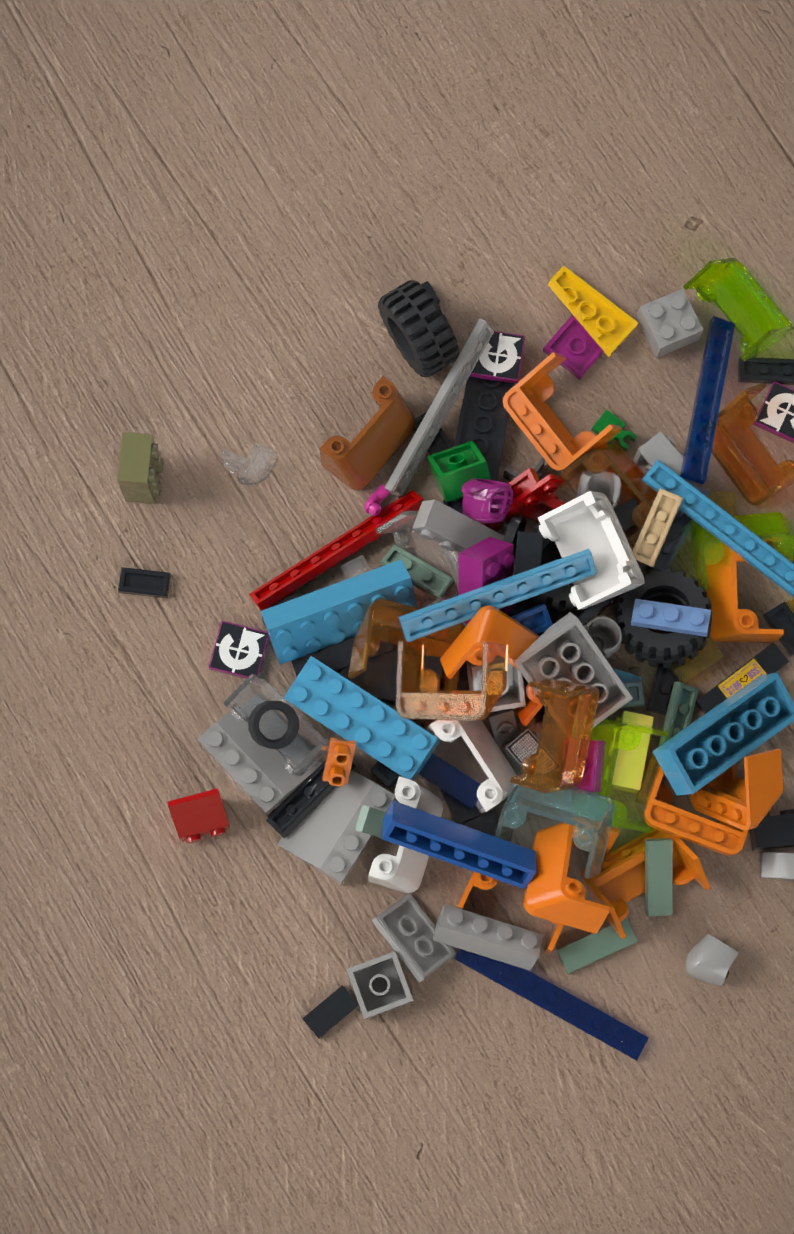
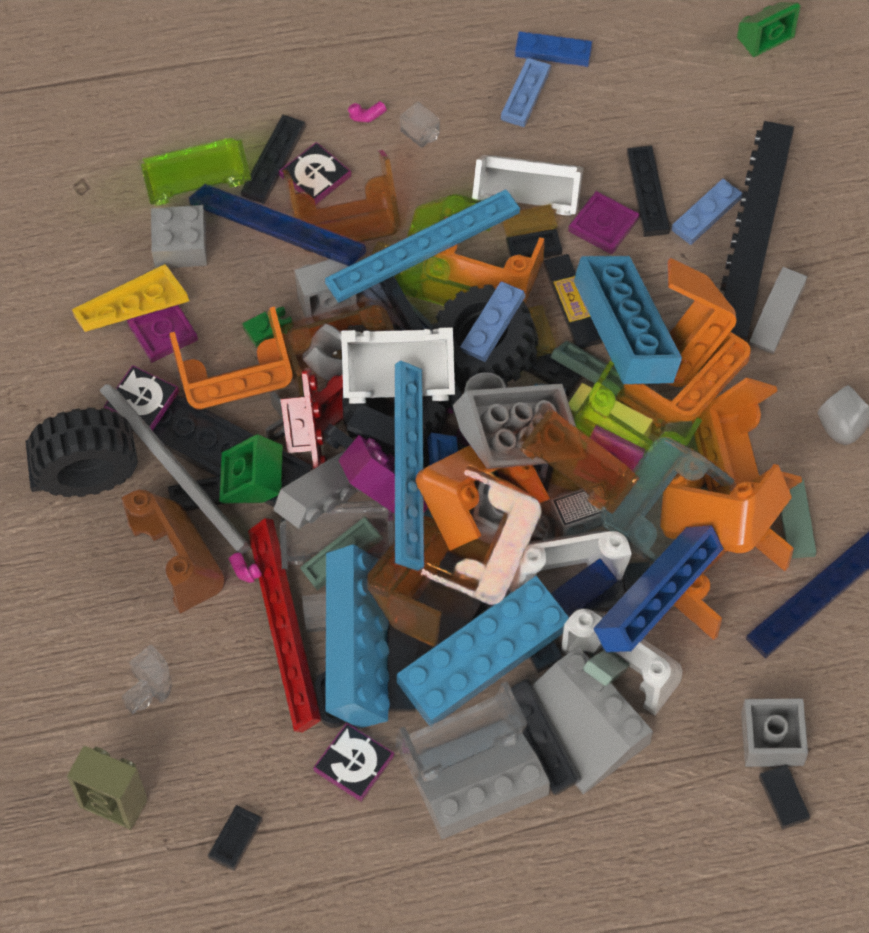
camera: 65 degrees left, 15 degrees down
(199, 815) = (529, 853): red slope -> none
(287, 738) = (464, 722): black tyre -> none
(339, 762) = (524, 685): orange hips -> none
(411, 936) = (732, 683): light grey tile -> none
(486, 500) = (299, 447): magenta piece -> none
(487, 937) = (756, 610): light grey brick -> none
(656, 527) = (392, 302): tan tile -> none
(658, 877) = (746, 434): sand green tile -> none

